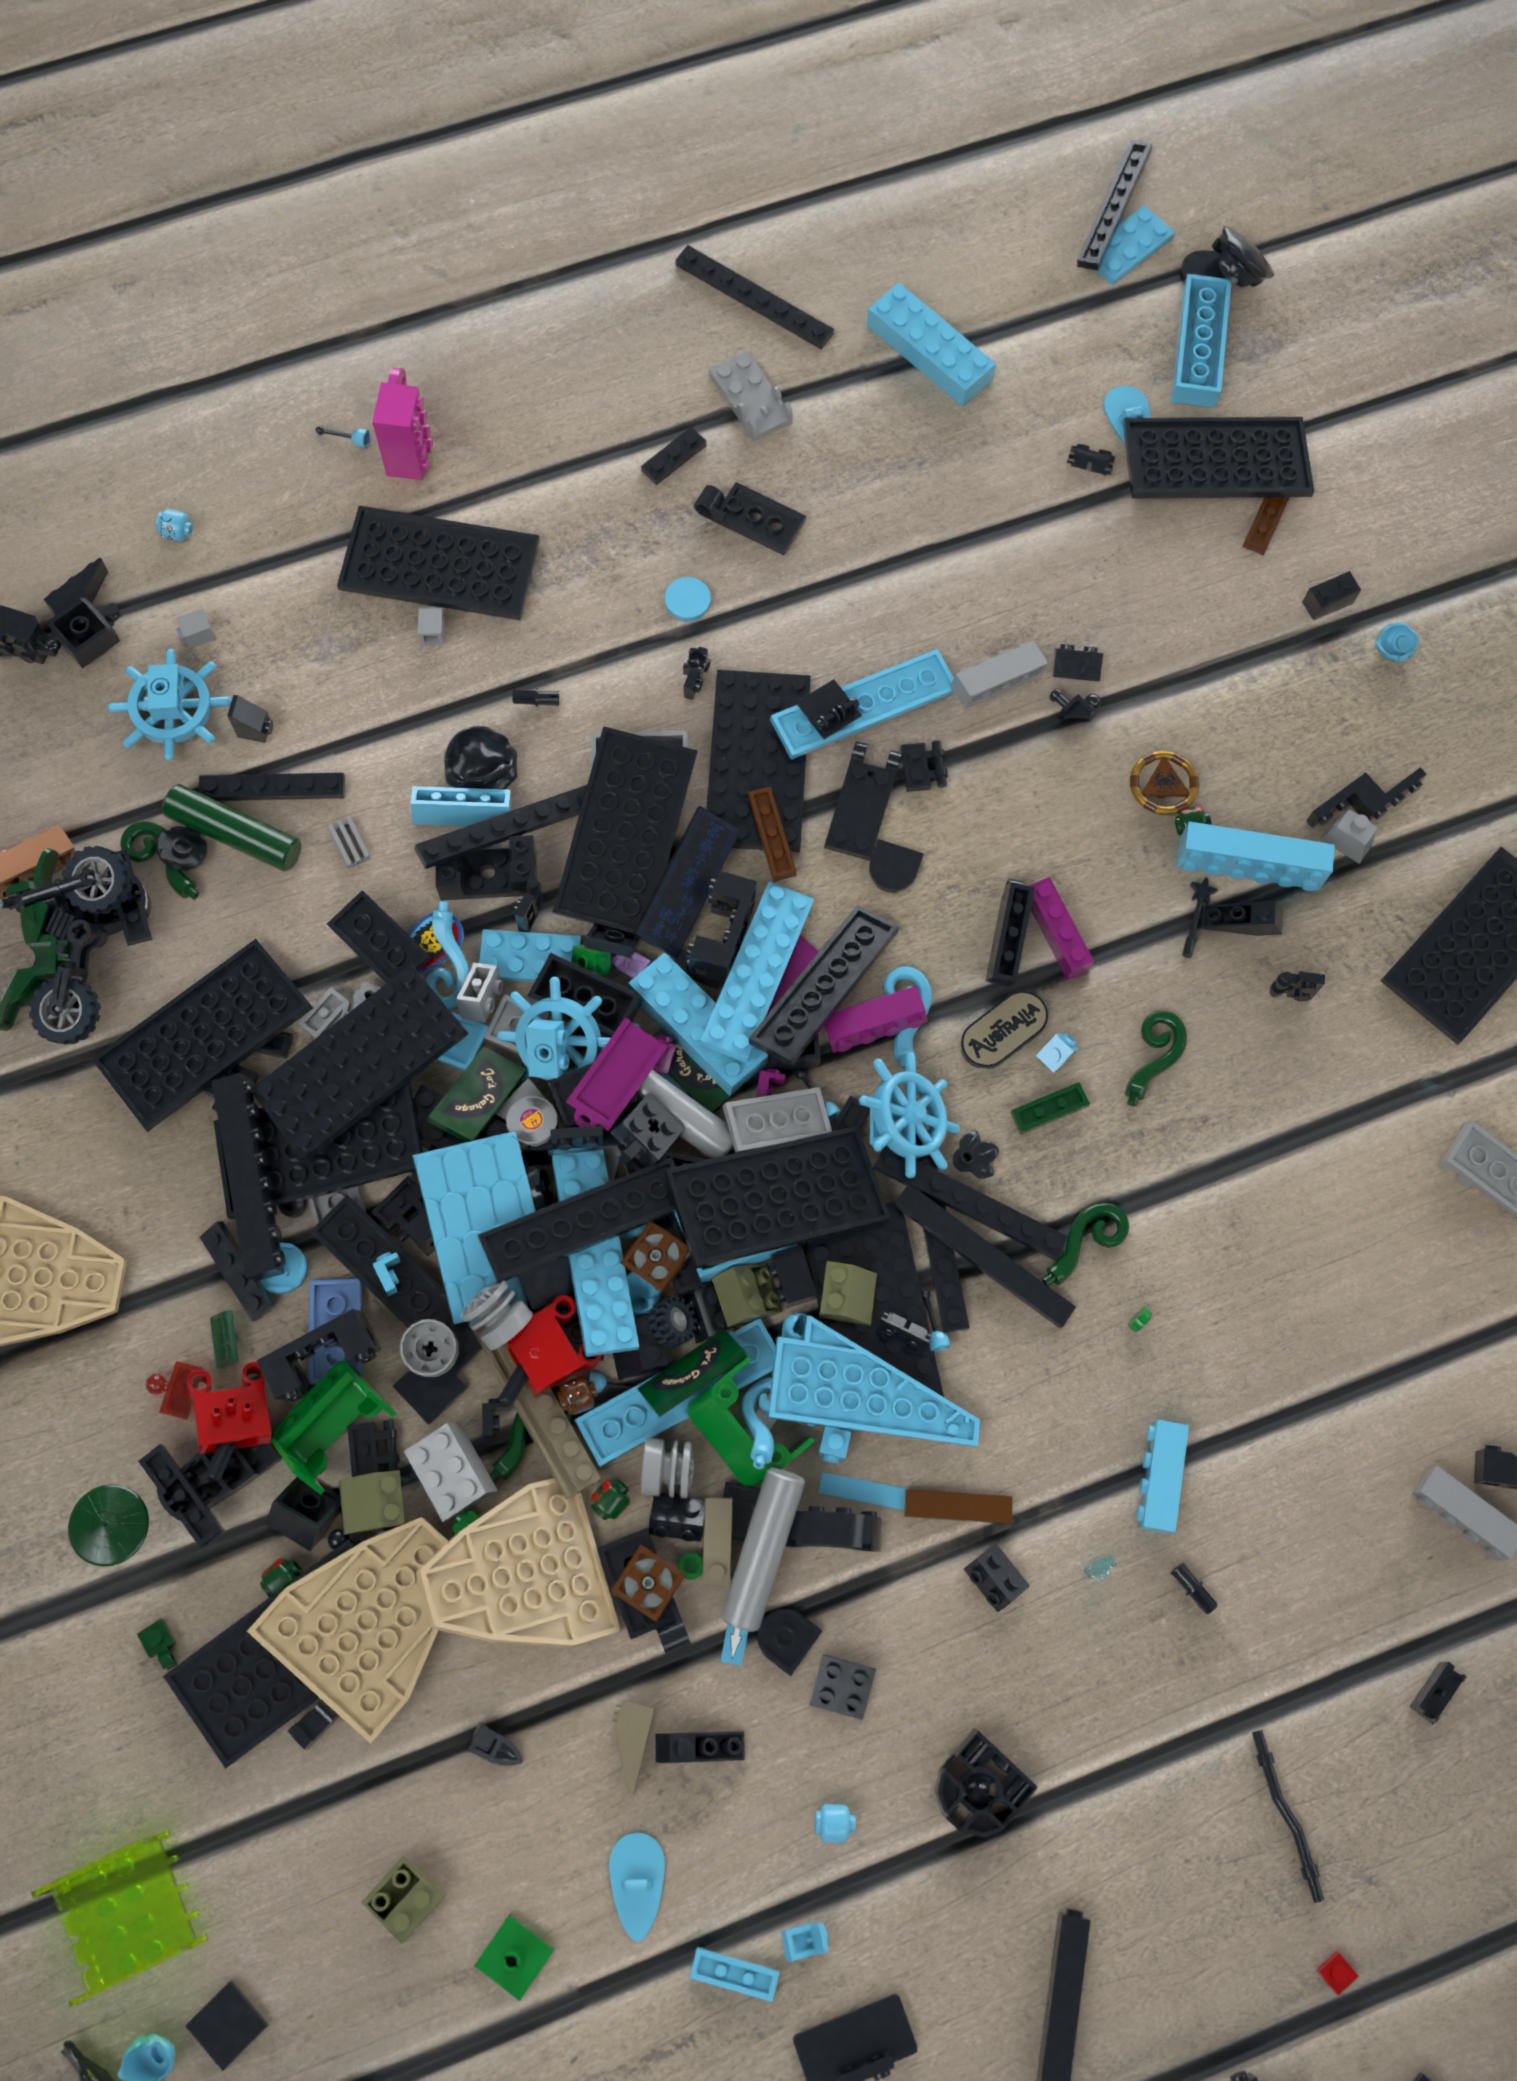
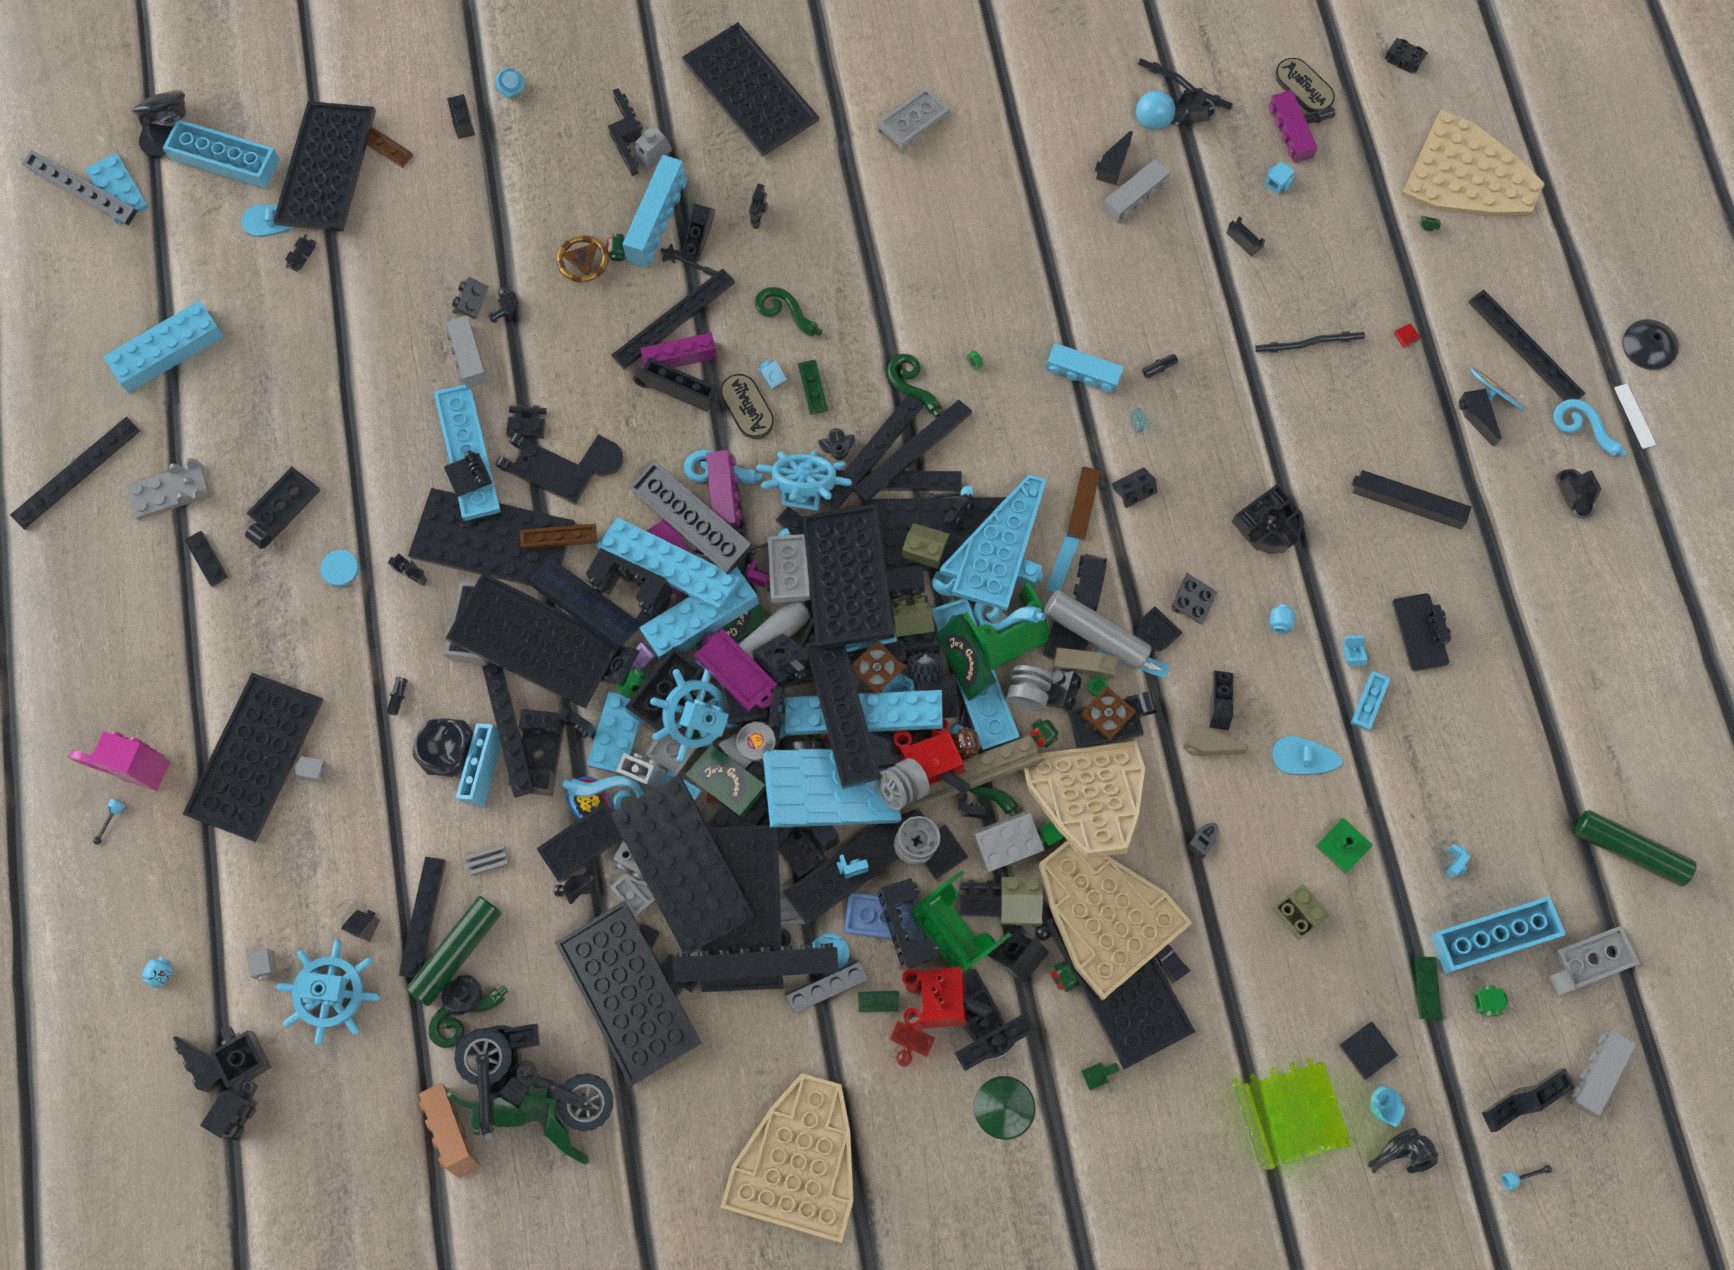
camera: 75 degrees left, 0 degrees up
(328, 948) = (575, 886): none -> black piece
(1109, 913) = (673, 318): none -> black plate

